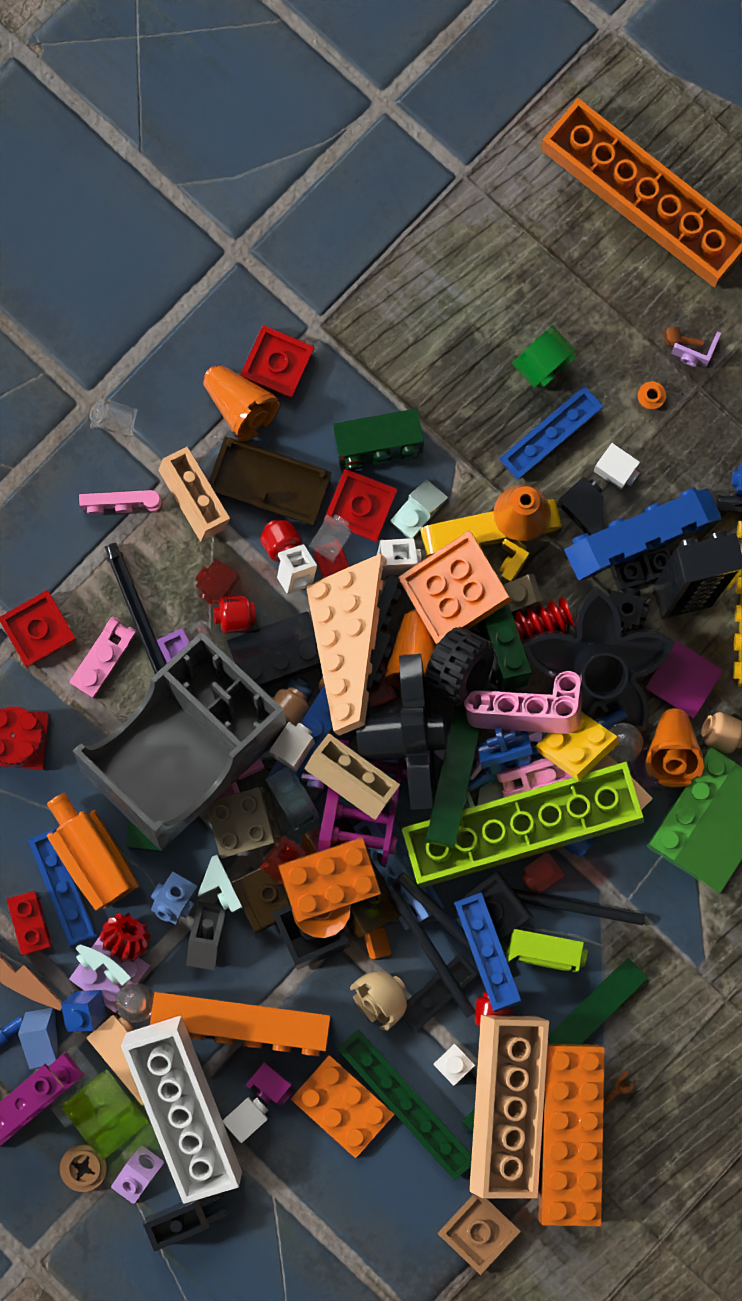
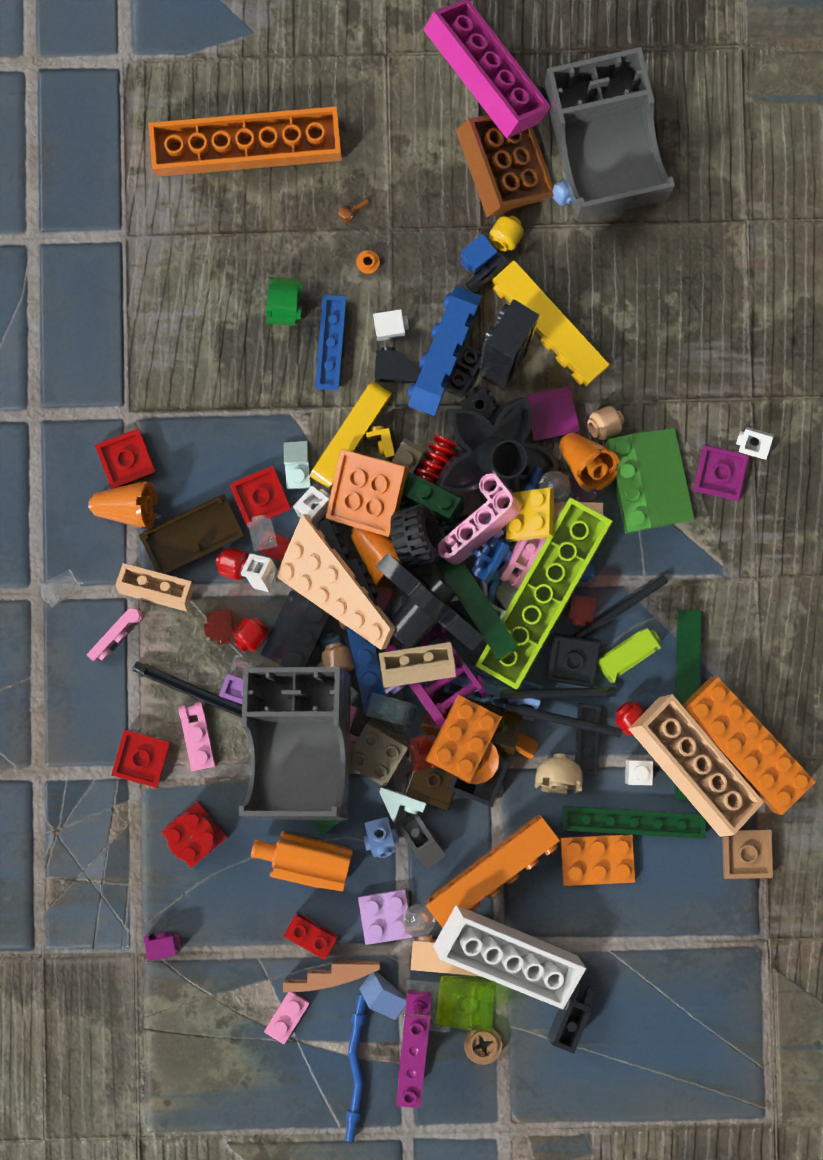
camera: 40 degrees left, 5 degrees up
(62, 891) = (313, 898): blue tile -> none
(83, 1010) = (393, 955): blue brick -> none
(96, 960) = (370, 919): light aqua slope -> none
(125, 937) = (375, 888): red gear -> none
(134, 1177) = (518, 1021): lavender bracket -> none
(246, 1118) = (549, 922): white brick -> none
(271, 1085) = (544, 889): magenta brick -> none
(293, 745) = (363, 680): white brick -> none
(378, 439) = (232, 446): dark green brick -> none
(487, 952) = (596, 688): blue plate -> none
(522, 513) = (365, 415): orange cone -> none
(621, 1087) = (747, 688): dark orange hand -> none
(693, 357) = (370, 215): lavender bracket -> none

